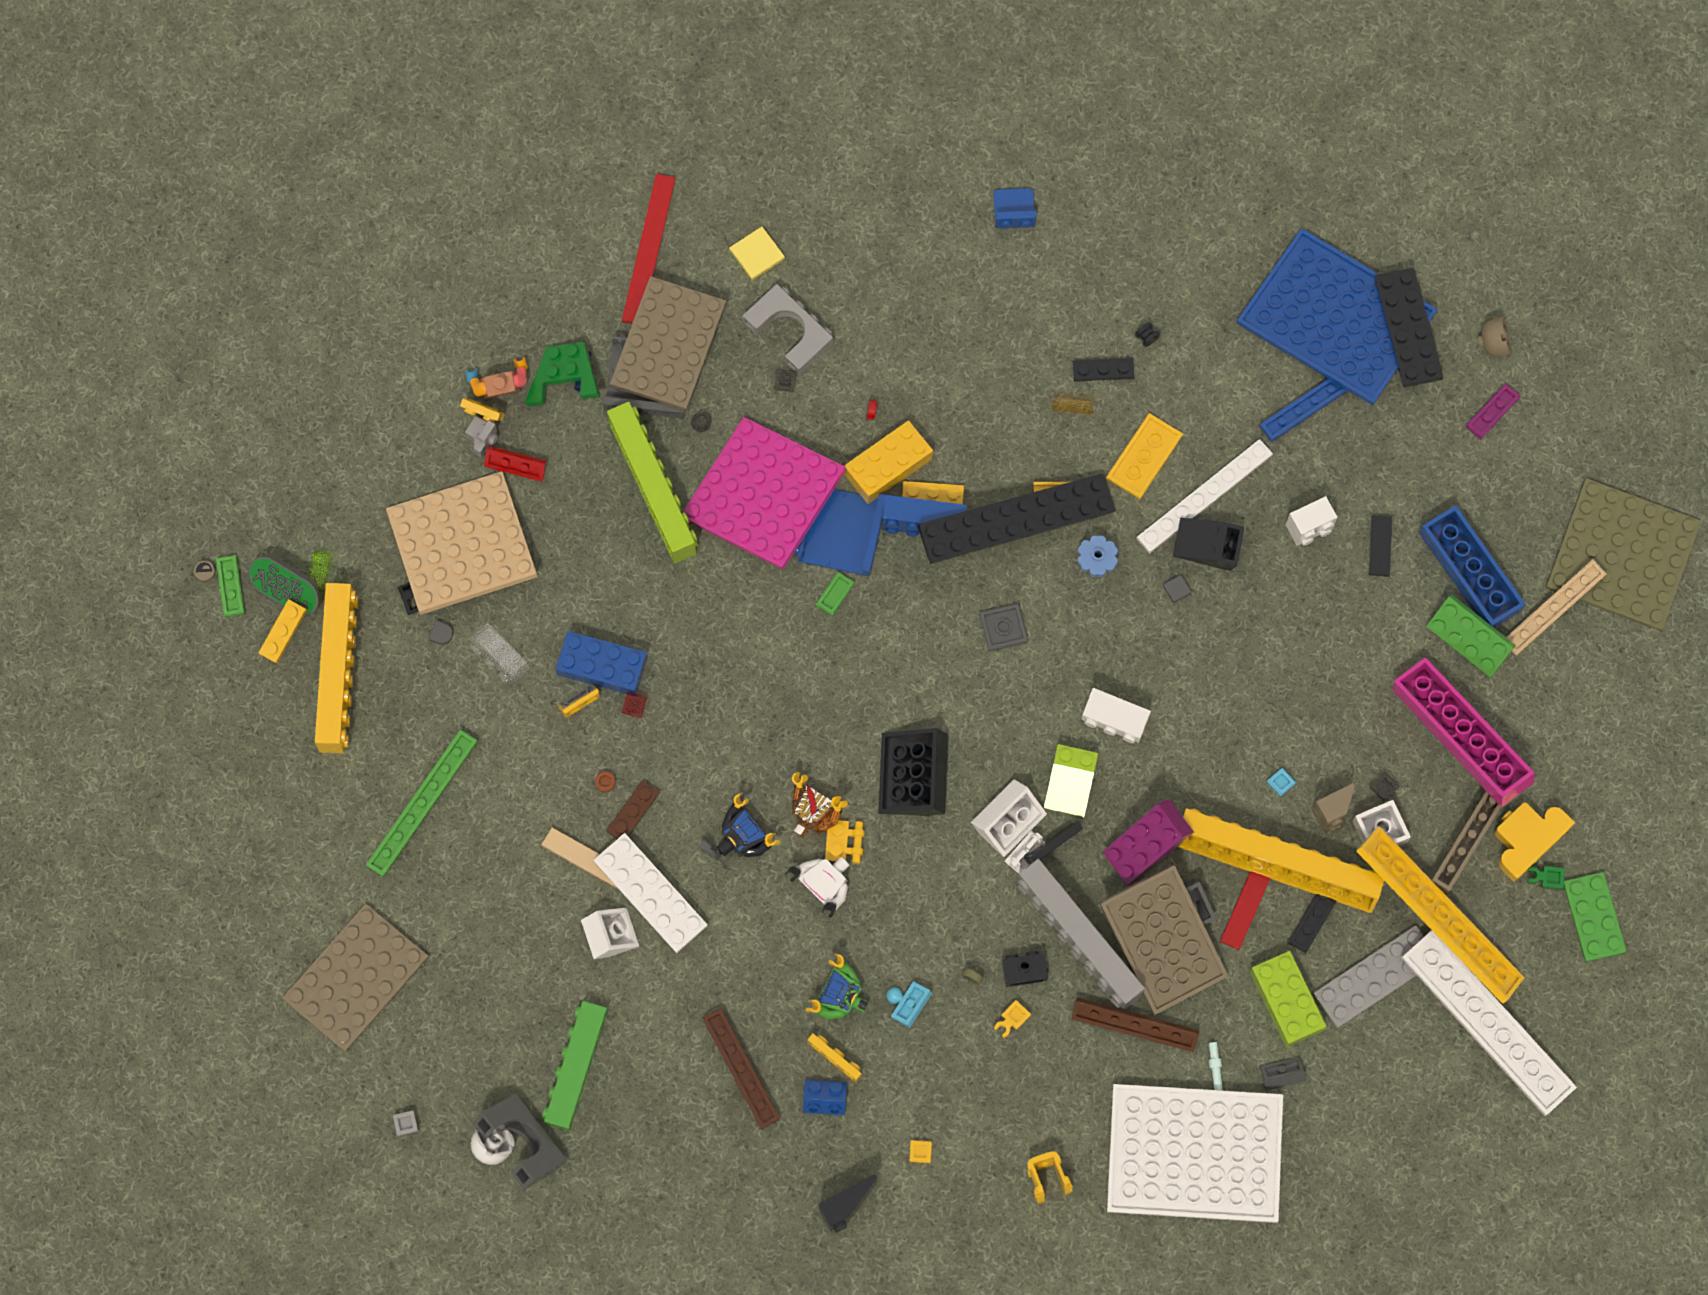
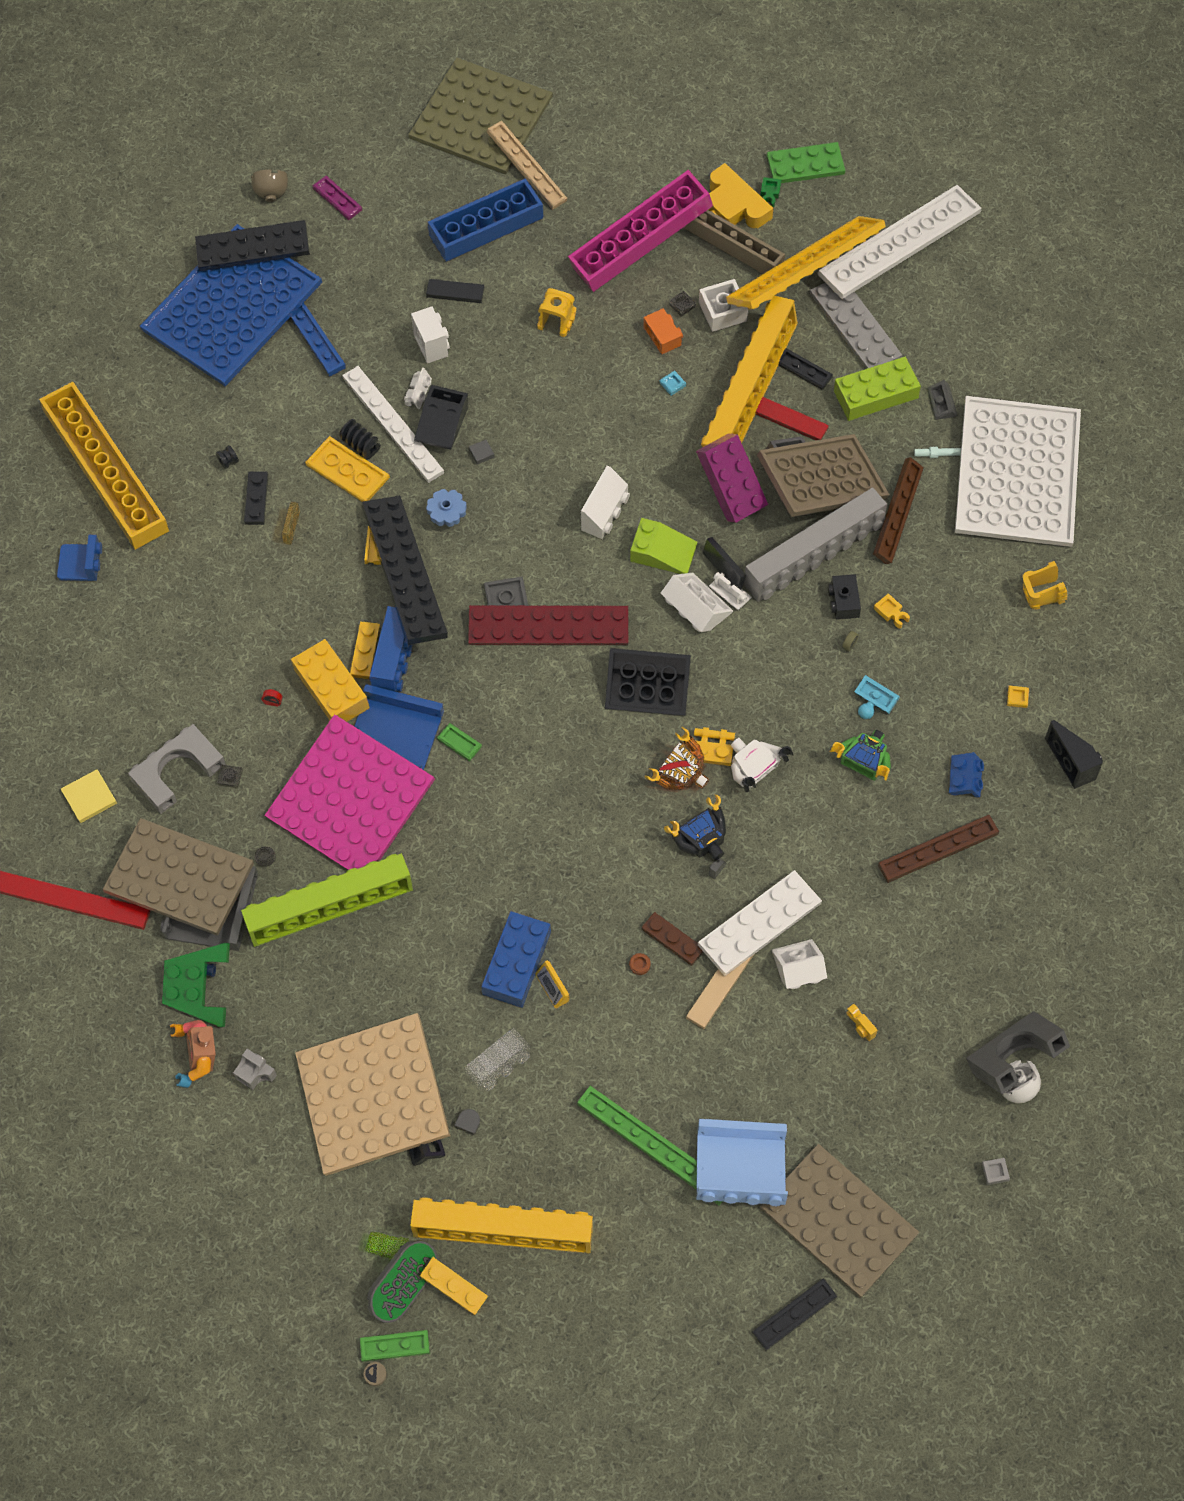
camera: 85 degrees left, 10 degrees down
(265, 938) = (794, 1314): none -> black tile
(402, 882) = (741, 1162): none -> light blue panel
(474, 406) = (223, 1073): yellow plate -> none
(515, 463) = (288, 1038): red plate -> none
(545, 996) = (863, 1024): none -> yellow plate
(576, 1065) = (936, 1001): bright green brick -> none
(634, 705) = (562, 931): clear red plate -> none
(835, 1057) = (927, 763): yellow plate -> none
(971, 671) = (547, 625): none -> dark red plate
(1125, 215) = (104, 465): none -> yellow brick
(1177, 462) = (359, 439): none -> black piece
(1257, 519) = (420, 383): none -> white hinge
(1333, 808) = (703, 336): dark tan slope -> none
(1344, 767) = (663, 331): none -> orange brick
(1355, 661) = (565, 310): none -> yellow piece
(1471, 635) = (548, 225): bright green plate -> none

